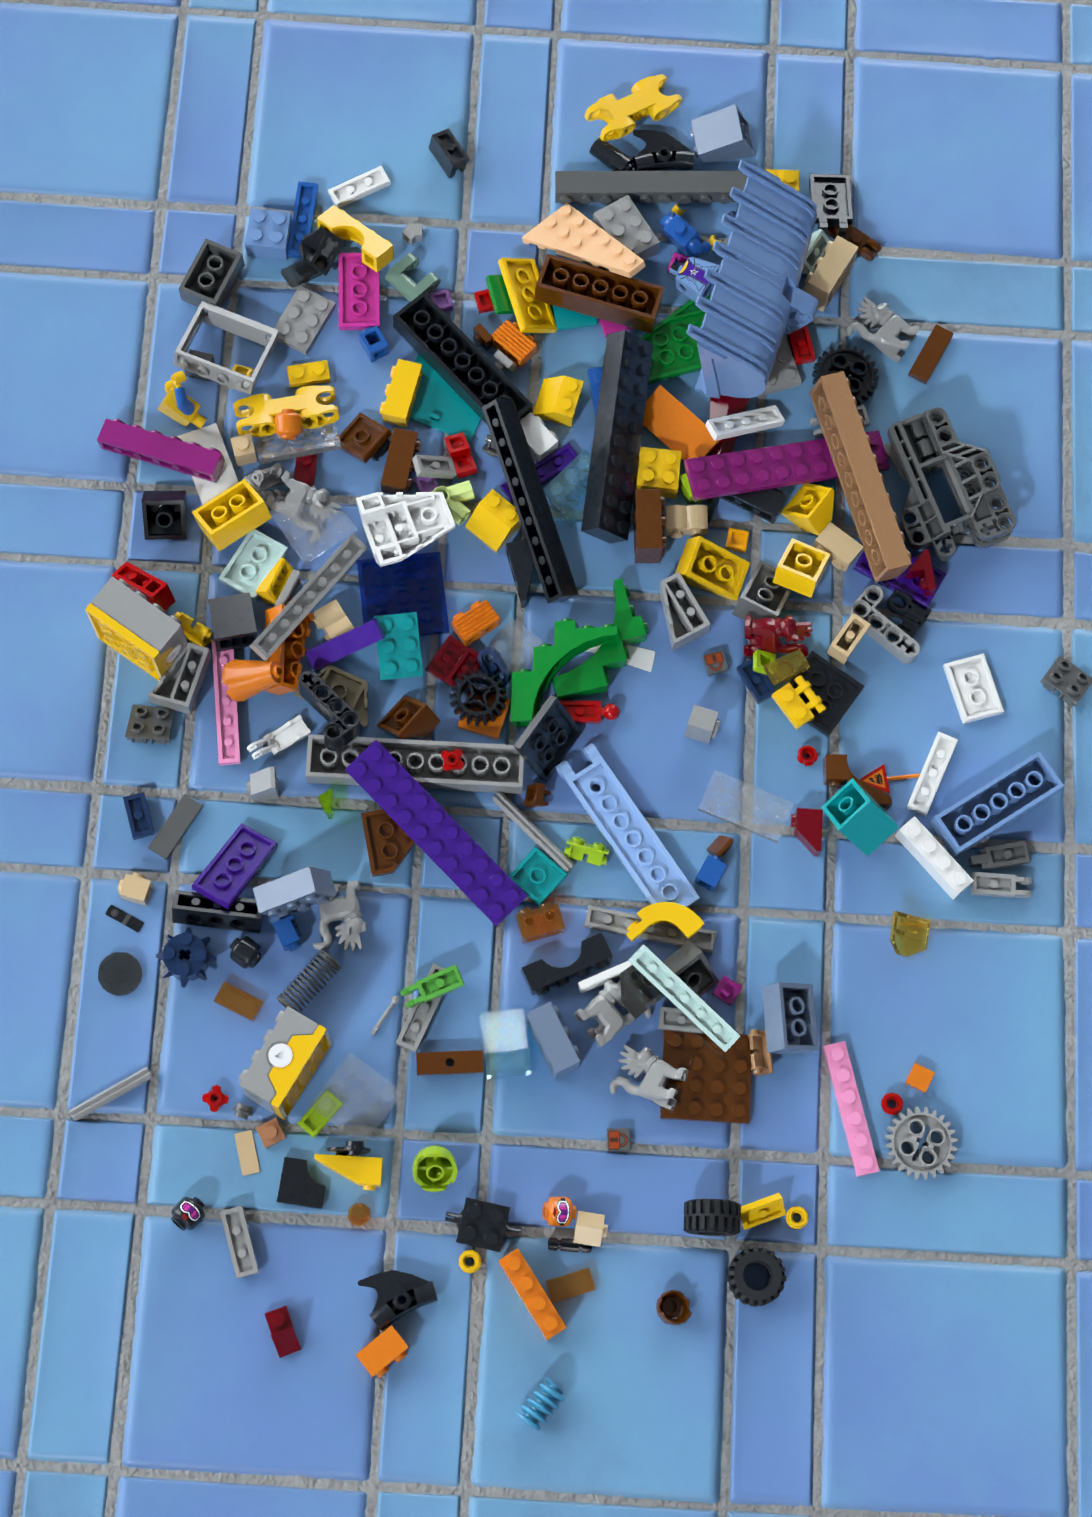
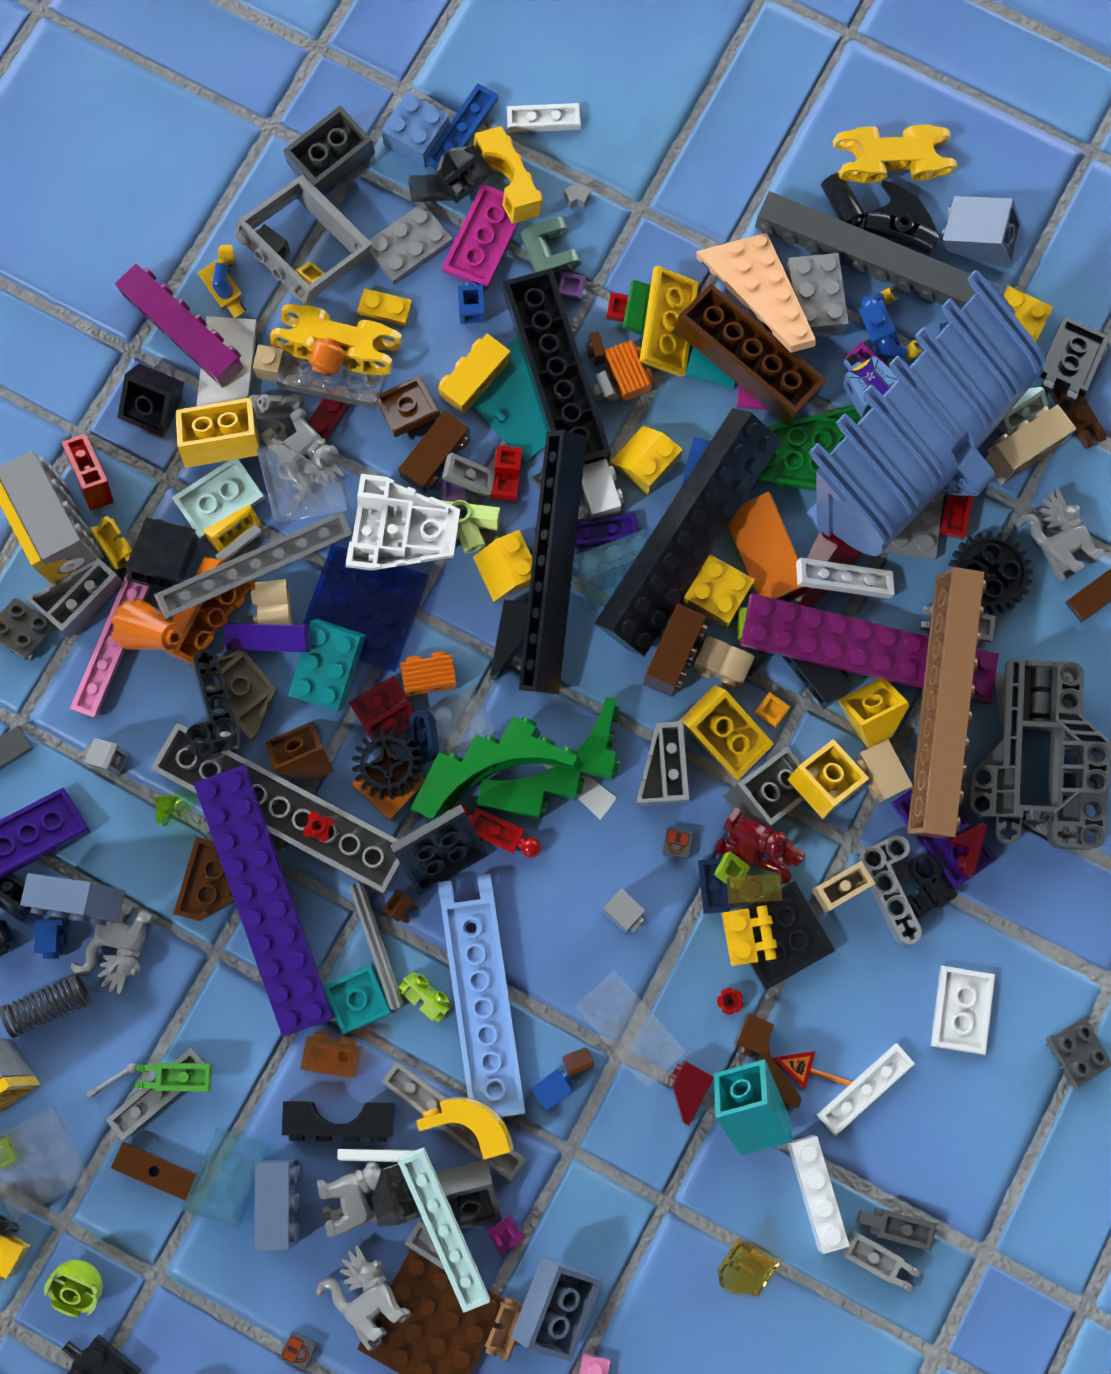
camera: 30 degrees right, 5 degrees up
(281, 738) = (153, 710): white arm -> none
(448, 152) = (660, 118): black hinge -> none
(996, 804) = (922, 1165): medium blue brick -> none

